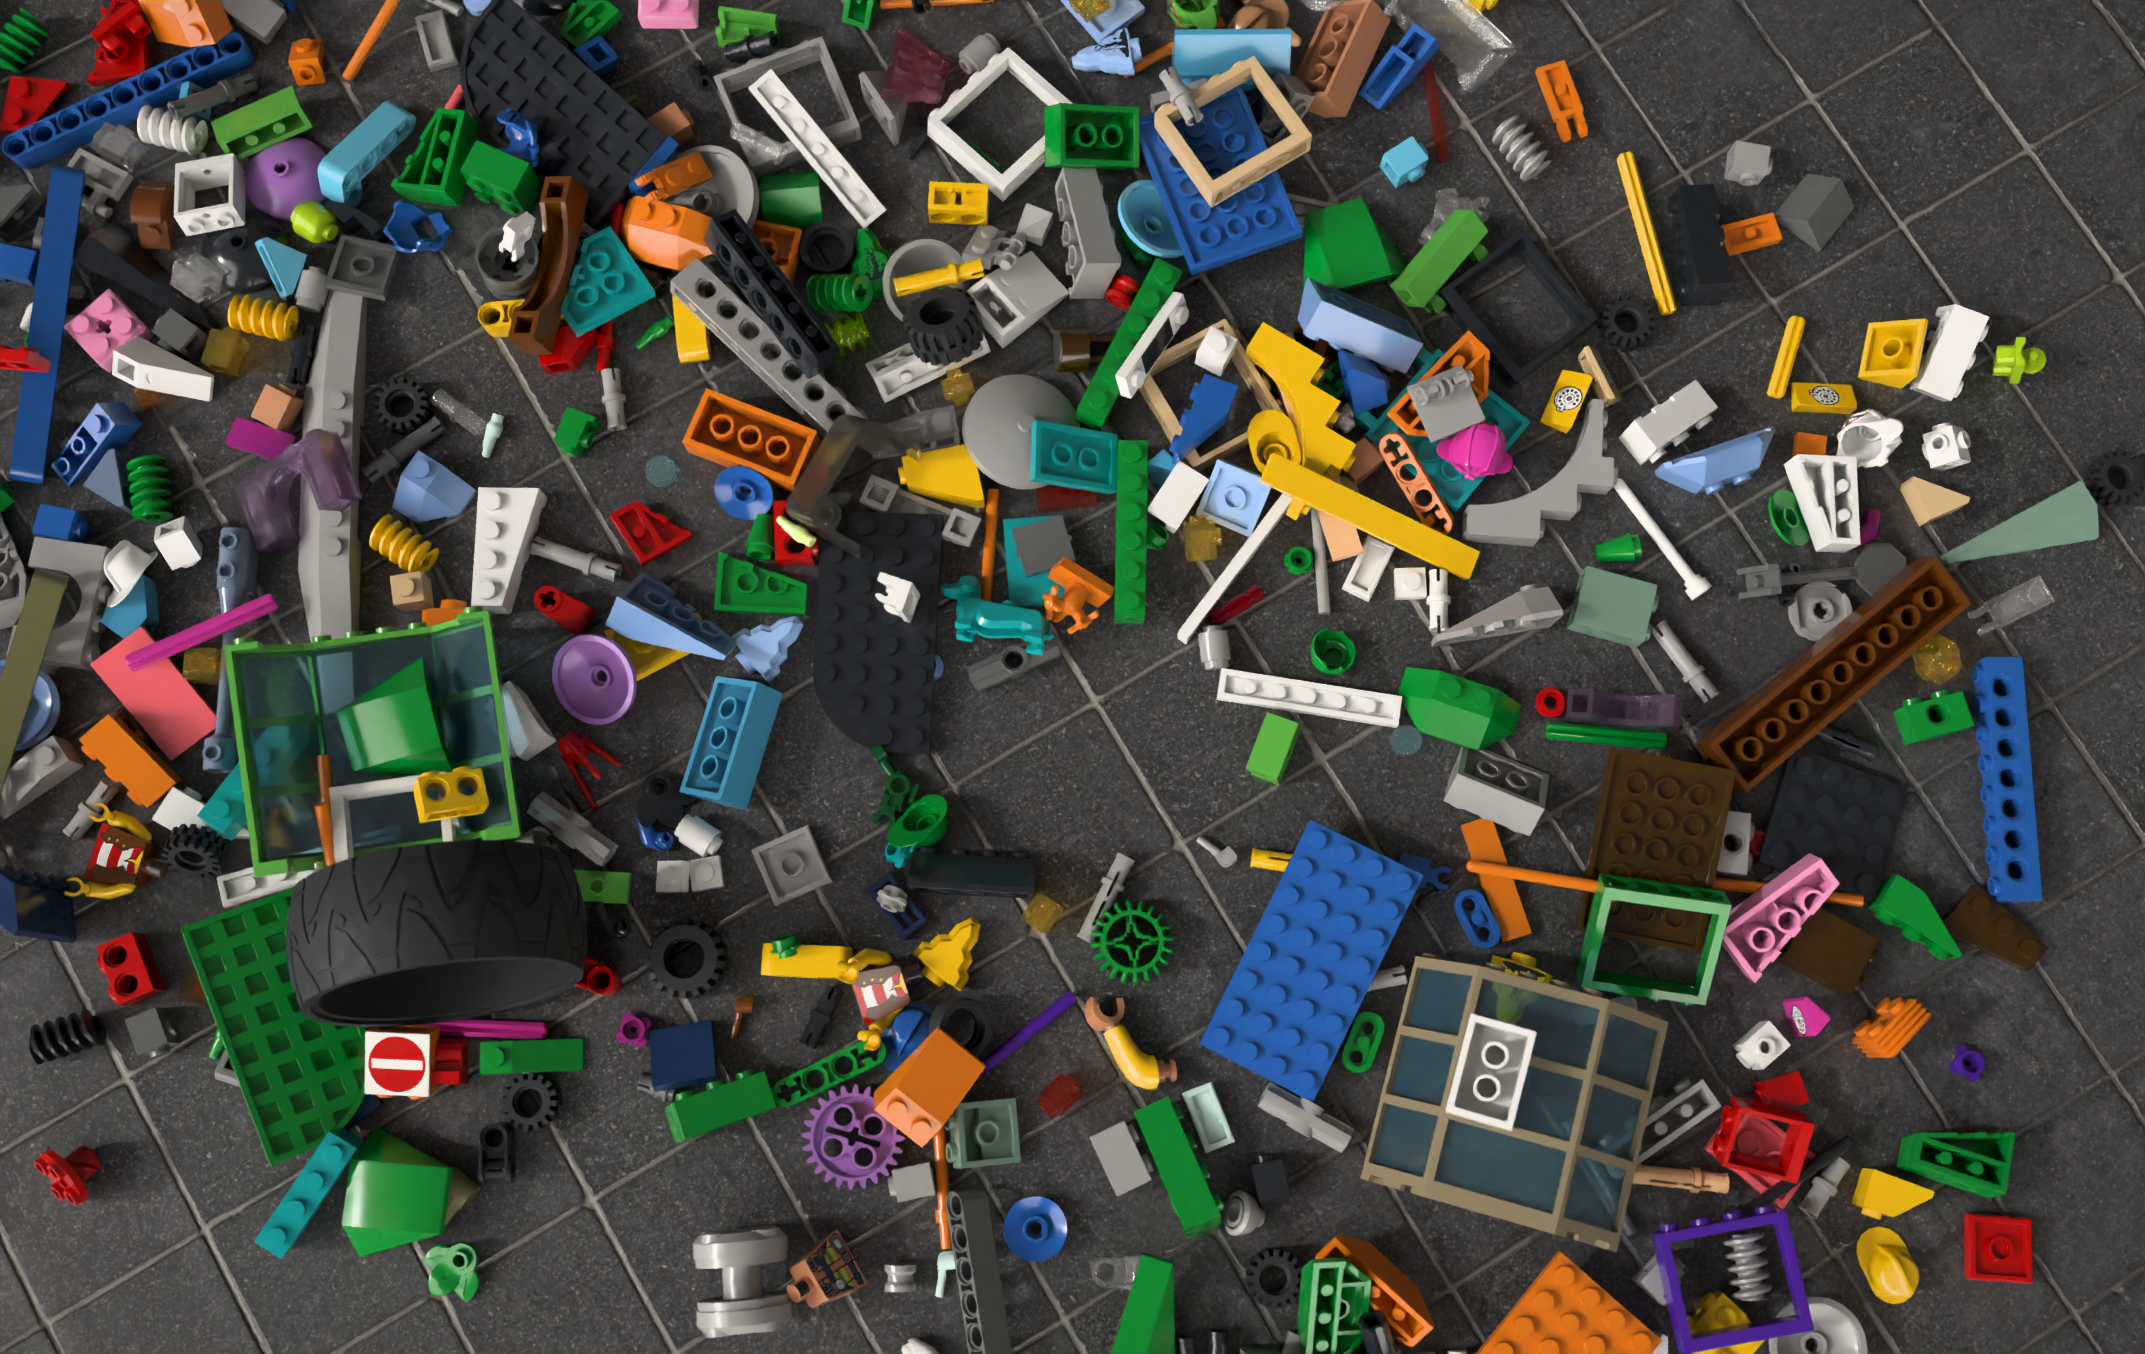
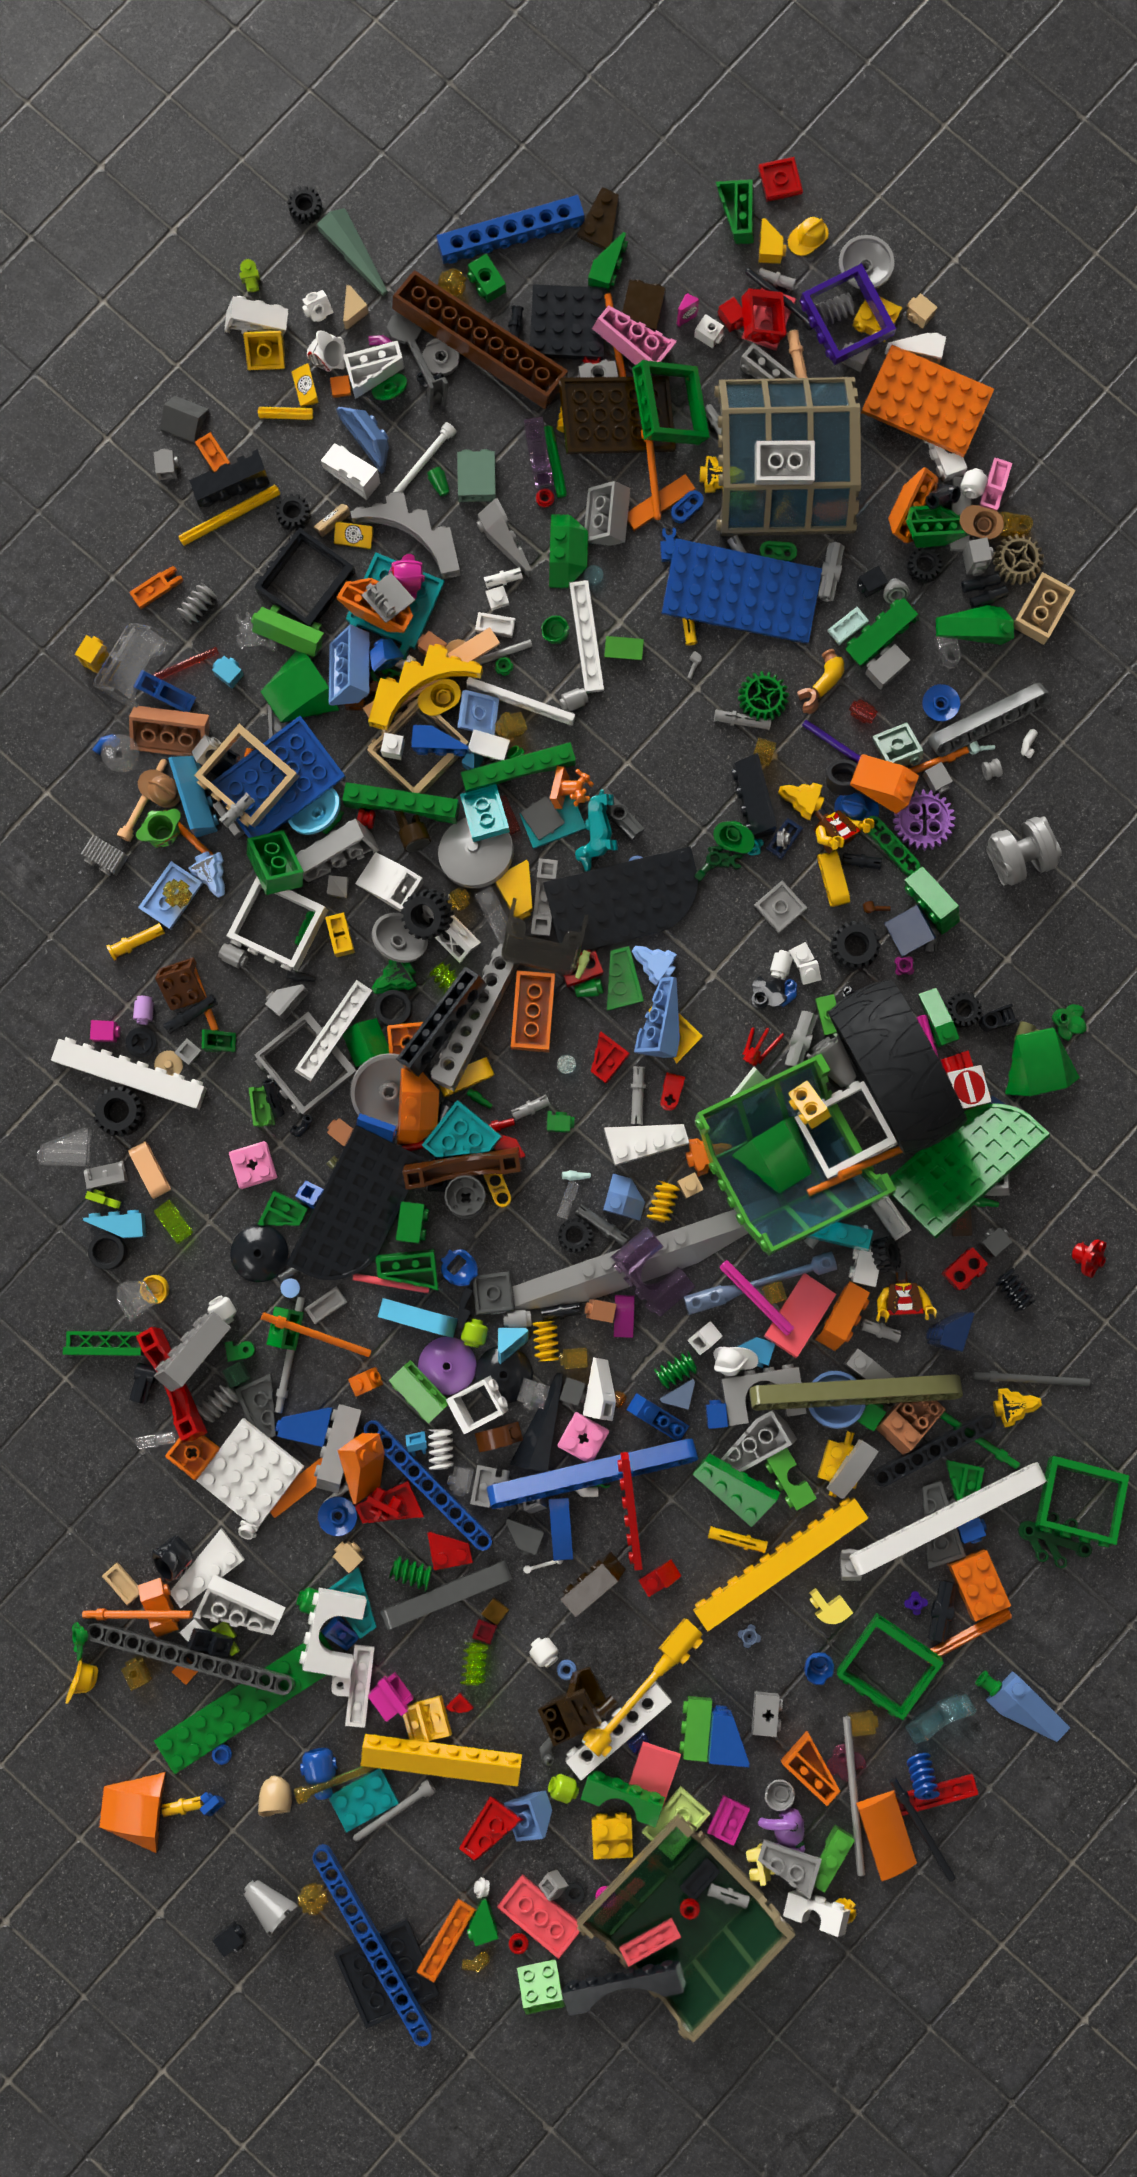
camera: 105 degrees left, 5 degrees up
(224, 91) = (405, 1423): dark grey pin -> none
(308, 1192) = (1056, 1114): teal brick -> none
(516, 233) = (451, 1190): white plate -> none
(522, 136) = (383, 1218): blue helmet -> none
(581, 683) = (717, 1058): medium lavender dish -> none
(676, 177) = (381, 1109): orange hinge -> none
(731, 742) = (720, 964): dark azure slope -> none
(739, 501) = (566, 1006): blue dish -> none
(759, 142) = (339, 1068): clear axle -> none
(785, 946) = (830, 888): green plate -> none
(825, 1272) = (1003, 809): torso -> none
(839, 292) = (422, 988): green piece -> none
(901, 596) = (607, 884): white hinge -> none
(914, 71) = (260, 989): clear pink wing -> none
(939, 277) = (394, 922): yellow pin -> none
(989, 544) = (551, 852): orange bar -> none
(994, 247) = (363, 909): light grey plate -> none
(1152, 344) = (423, 789): white plate -> none
(1236, 605) = (542, 694): dark red axle -> none
(1369, 516) = (469, 627): yellow tile -> none
(1421, 481) = (438, 610): orange beam -> none
(1685, 662) = (501, 420): light grey pin -> none
(1890, 1027) = (677, 261): orange brick -> none
(1975, 1059) = (686, 213): dark purple plate -> none
(2014, 604) = (402, 248): clear hinge -> none

